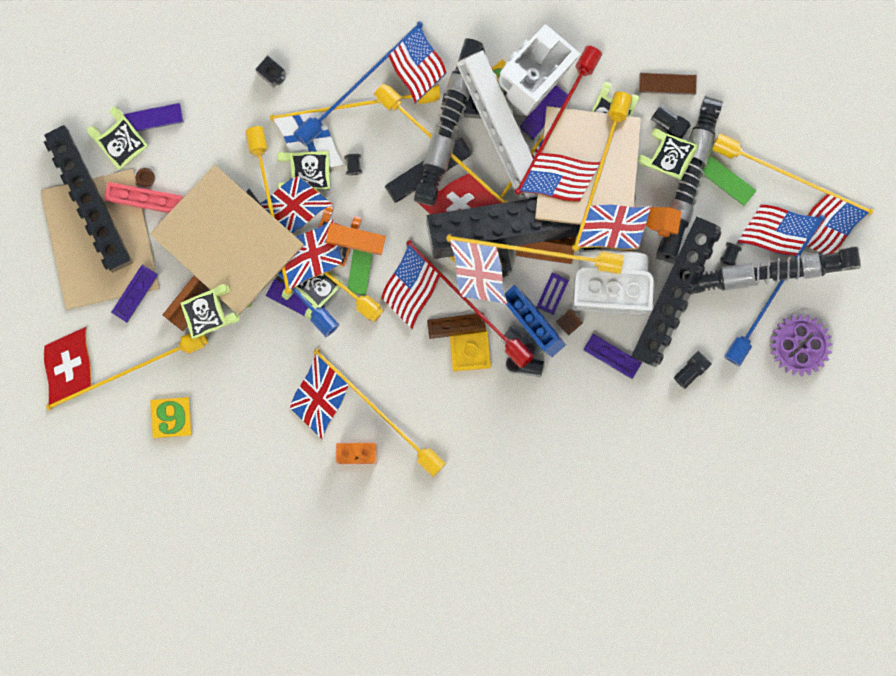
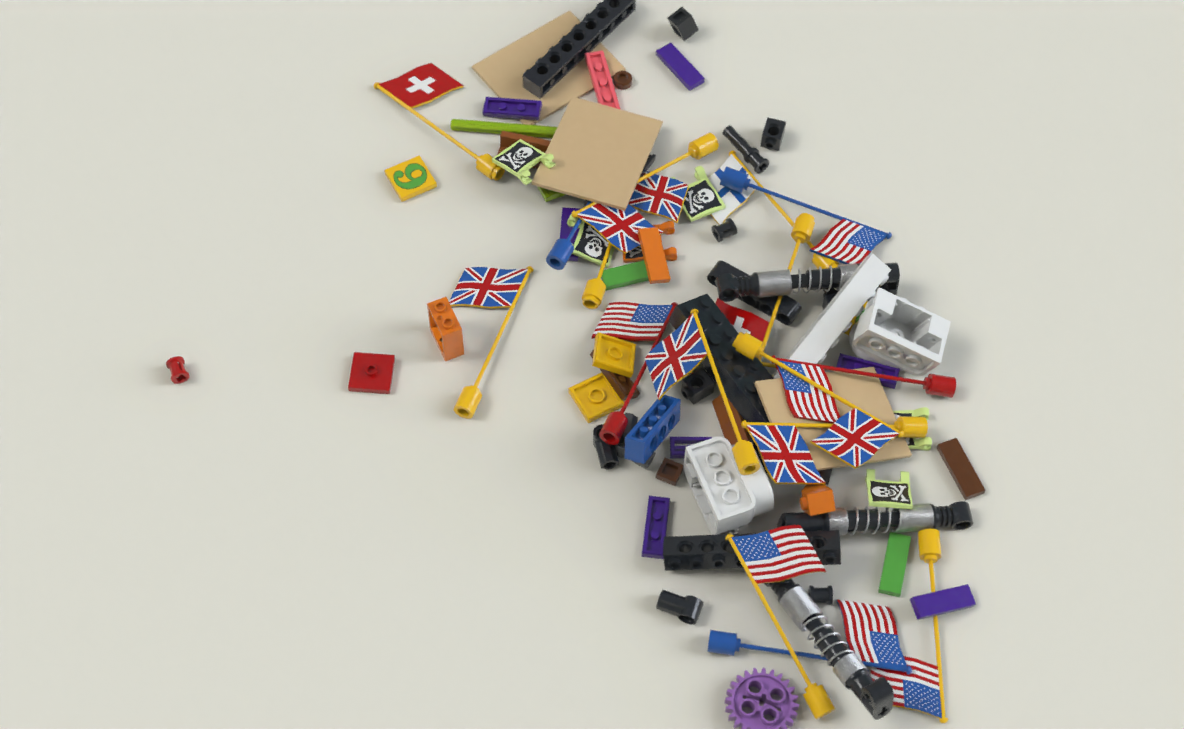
camera: 65 degrees right, 25 degrees down
(111, 94) = (683, 23): none -> black brick
(120, 141) = (645, 49): flag -> none
(153, 309) = (497, 127): none -> lime axle
(282, 102) = (750, 154): none -> black pin
(363, 532) = (371, 373): none -> red plate
(440, 319) = (614, 355): none -> yellow tile
(614, 157) = (853, 436): none -> flag
(675, 125) = (922, 488): black piece -> none
(699, 276) = (775, 558): none -> flag
(779, 161) = (942, 602): none -> dark purple tile

